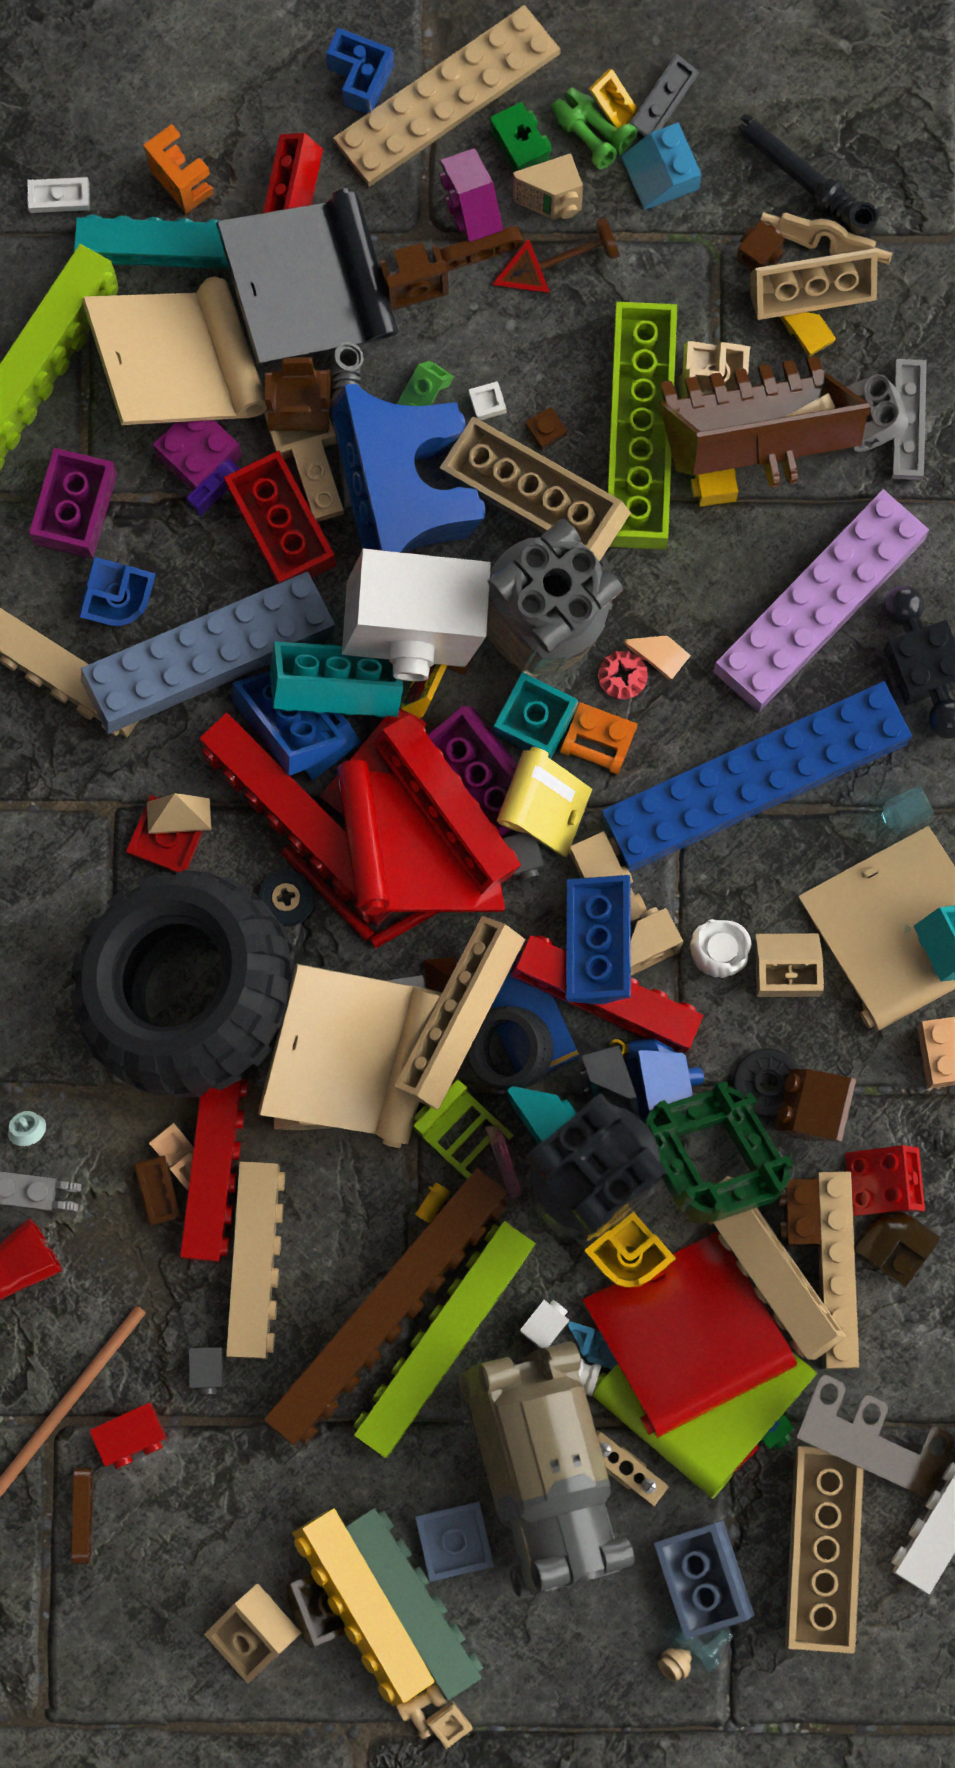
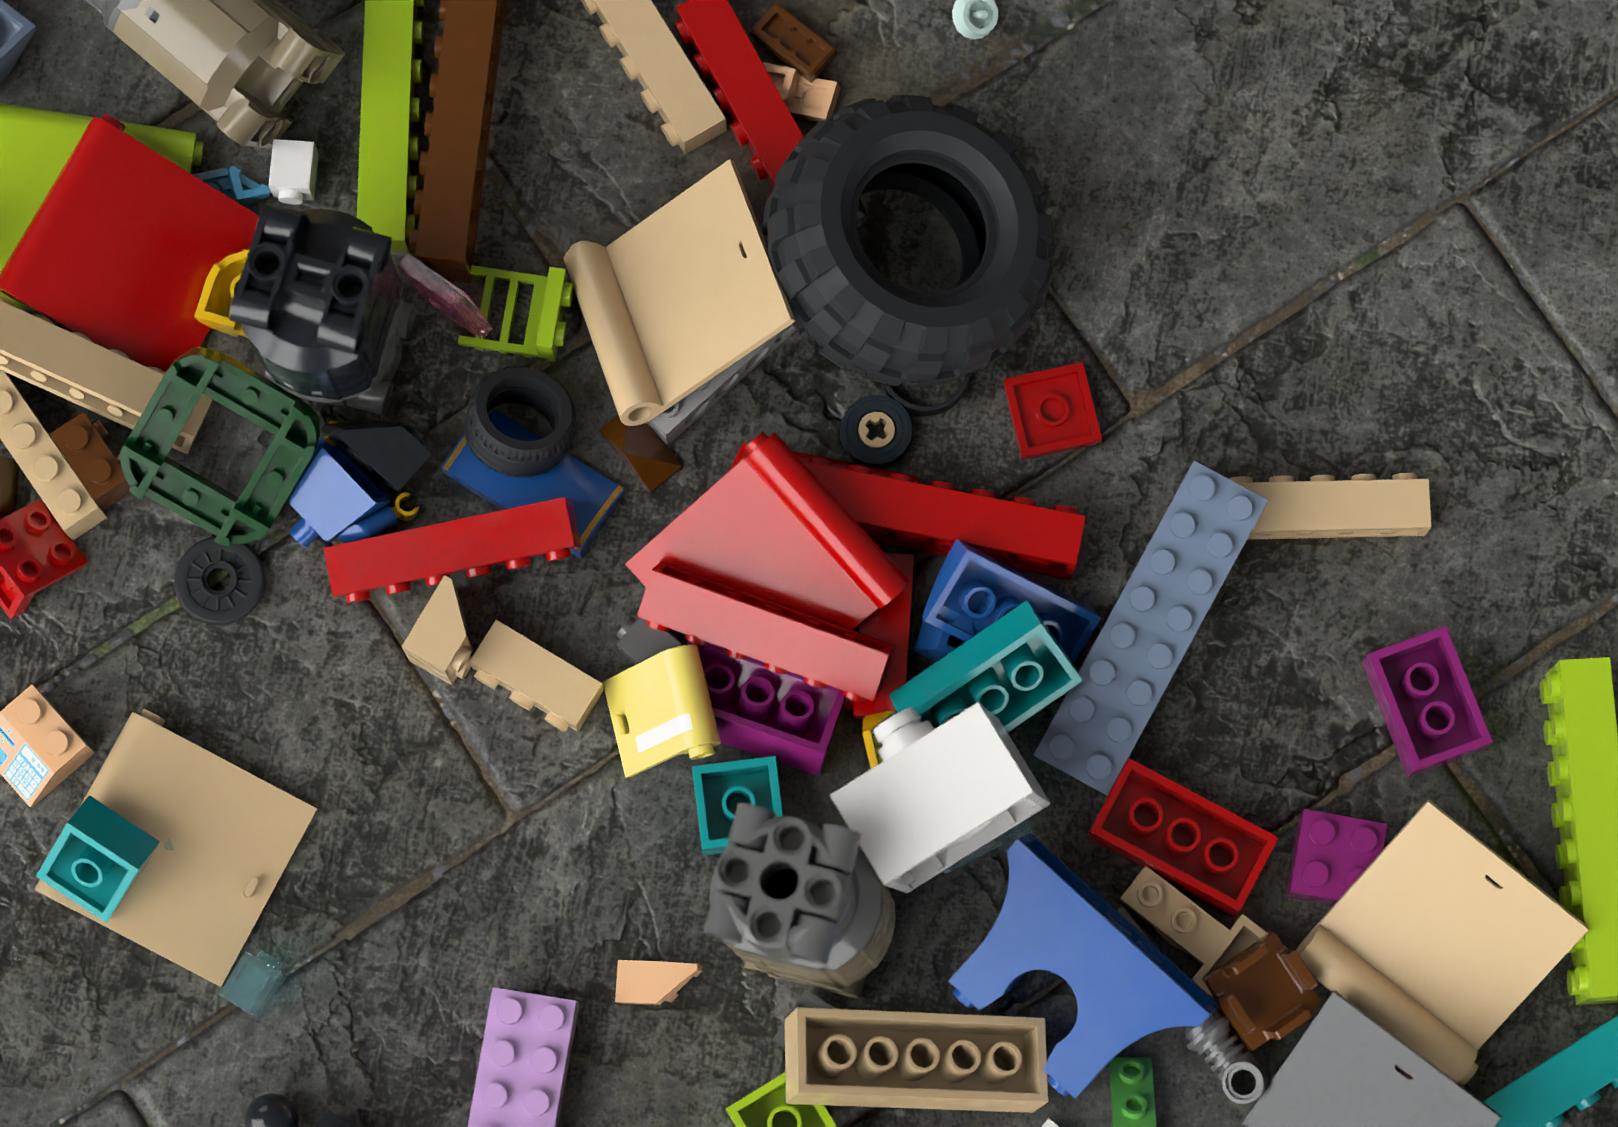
camera: 145 degrees right, 0 degrees up
(115, 593) = (1304, 633): blue brick -> none
(178, 814) = (1053, 436): tan slope -> none
(211, 488) = (1287, 829): dark purple piece -> none
(433, 1202) = (495, 219): yellow pin -> none
(459, 1012) = (593, 410): tan brick -> none
(540, 1111) = (435, 374): teal slope -> none
(588, 1376) = (217, 148): white wheel -> none
(598, 939) = (497, 590): blue slope -> none
(601, 729) = (657, 851): orange plate -> none
(615, 686) = (657, 931): coral gear -> none
(650, 1489) = (153, 91): tan piece -> none
(720, 948) = (362, 684): white piece -> none
(756, 776) = (447, 907): blue brick -> none
(789, 965) = (276, 718): tan slope -> none
(815, 1105) = (147, 578): reddish brown slope -> none

